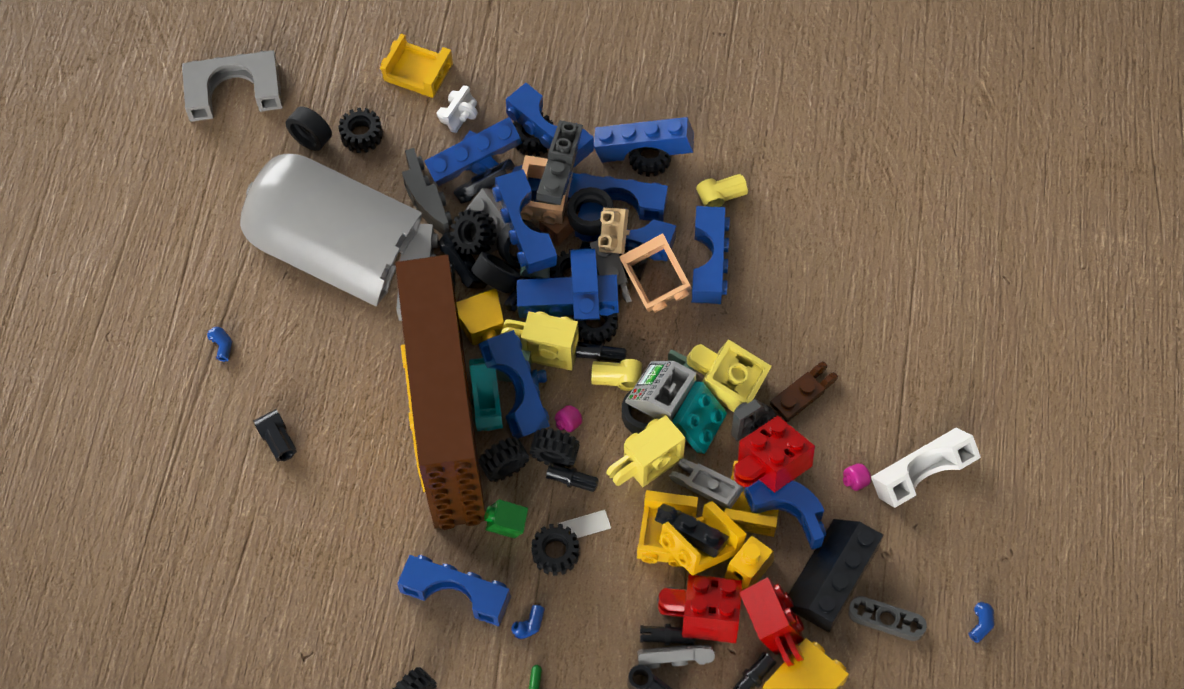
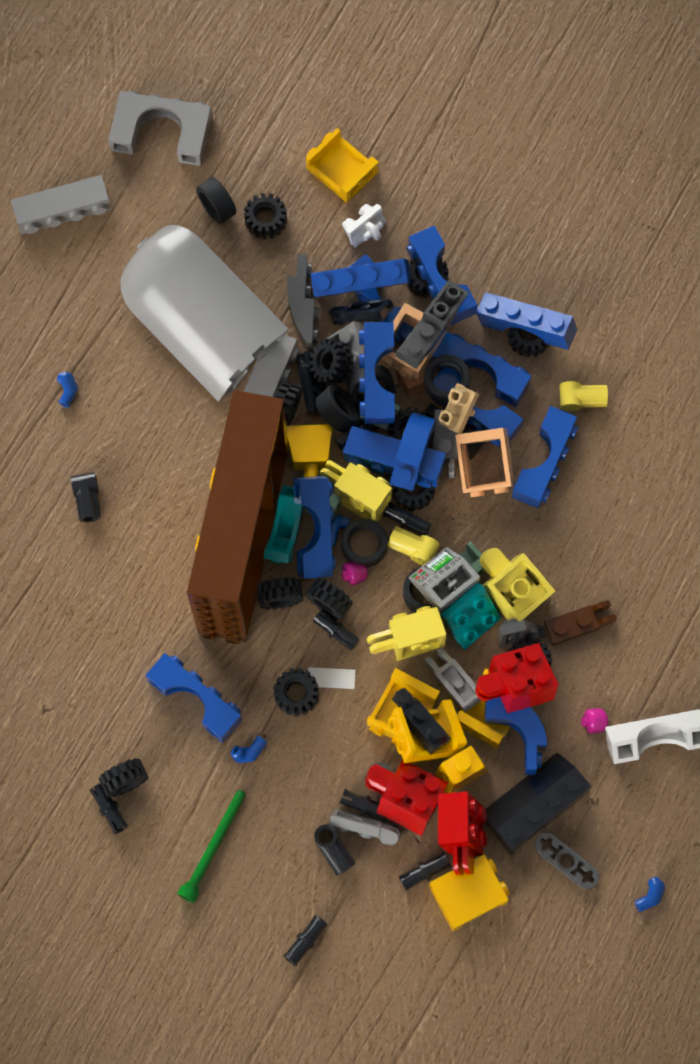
camera: 20 degrees right, 10 degrees up
(157, 180) = (61, 205): none -> light grey brick
(506, 518) = (262, 649): green brick -> none
(568, 370) = (364, 524): none -> black tyre

